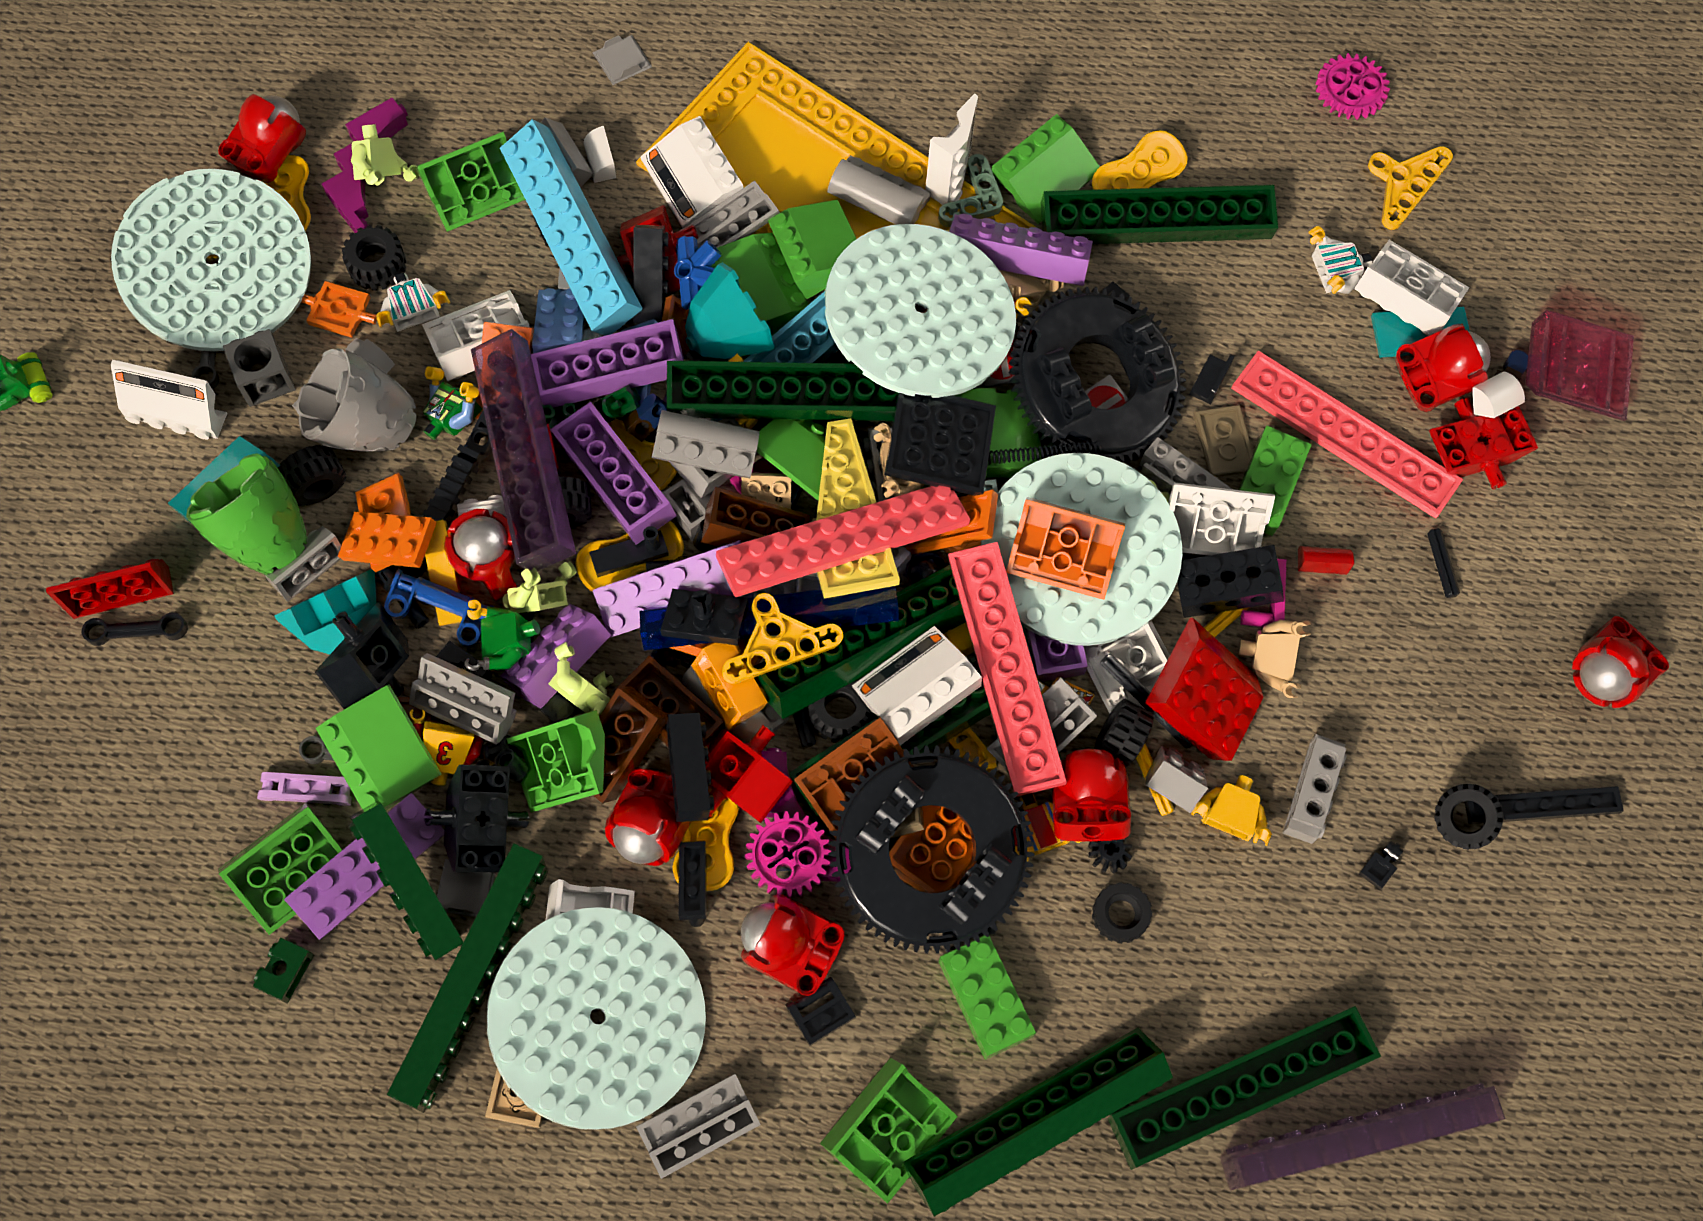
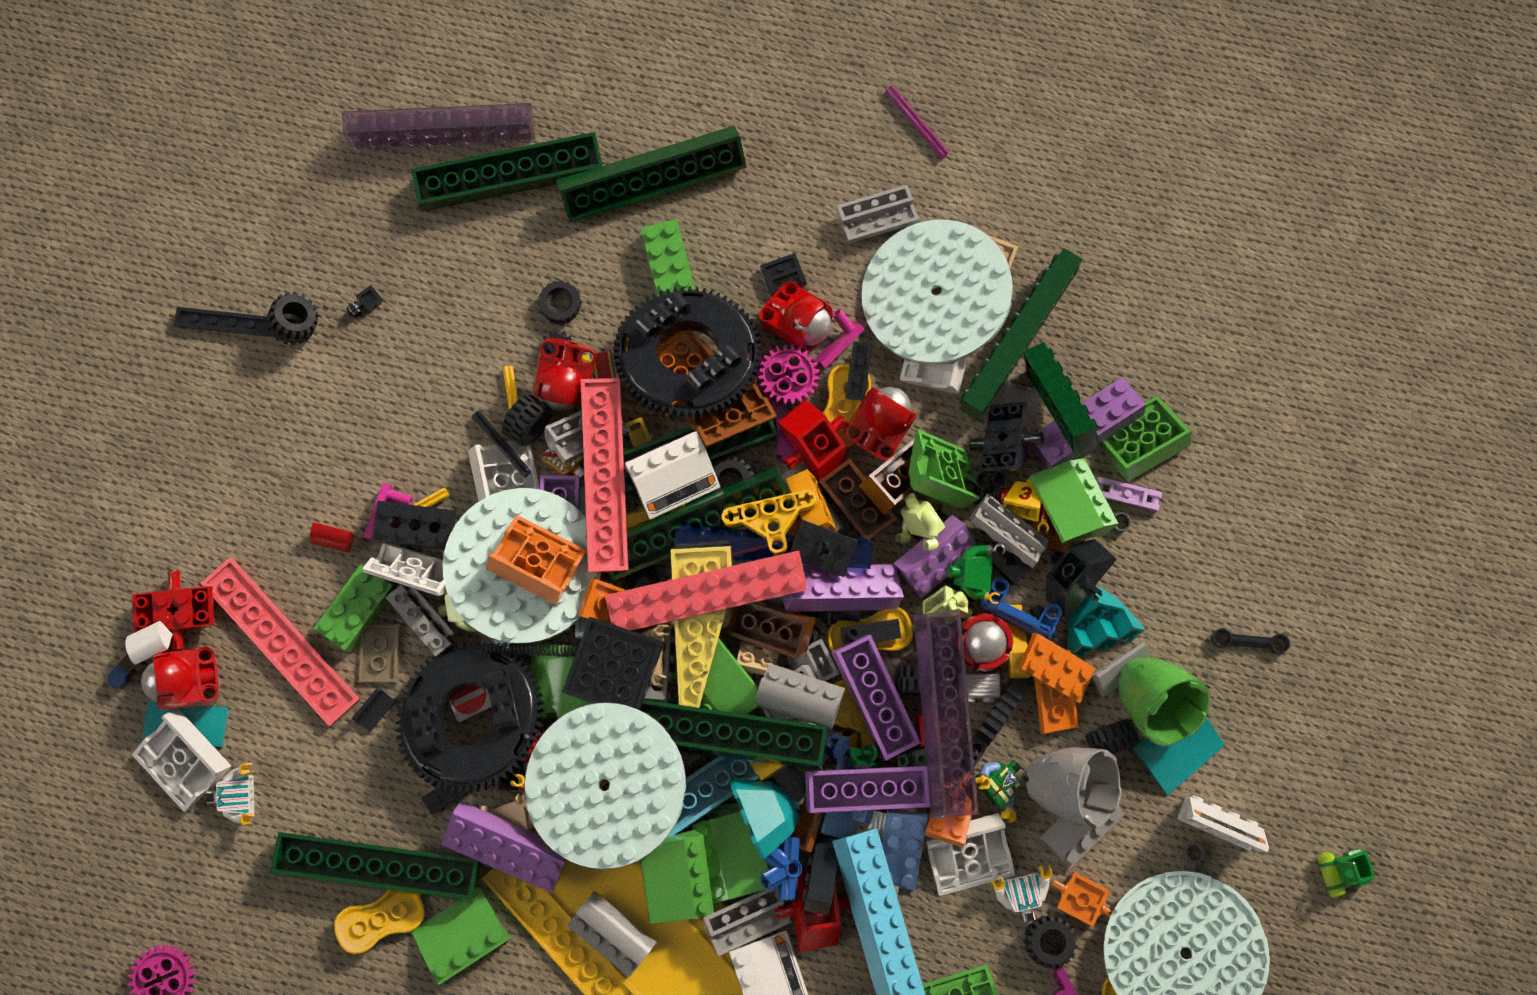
camera: 175 degrees left, 10 degrees up
(113, 588) = (1266, 673): red slope -> none
(266, 383) = (1161, 832): dark grey brick -> none
(283, 985) = (1143, 376): dark green brick -> none
(688, 767) = (850, 443): black brick -> none
(724, 924) = (849, 333): none -> dark pink piece
(886, 1127) = (752, 193): bright green piece -> none
(950, 156) = (543, 937): white piece -> none
(982, 195) = (521, 917): sand green beam -> none
(1177, 779) = (495, 384): light grey slope -> none
(1206, 693) = (455, 439): red slope -> none
(1235, 811) = (459, 356): yellow torso -> none
(1276, 653) = (394, 464): tan torso -> none
(1299, 821) = (395, 372): light grey brick -> none
(1413, 175) = (139, 878): yellow beam -> none
(1443, 563) = (239, 520): black axle -> none
(1580, 364) = (70, 657): clear pink slope -> none
(1617, 665) = (137, 410): red piece -> none

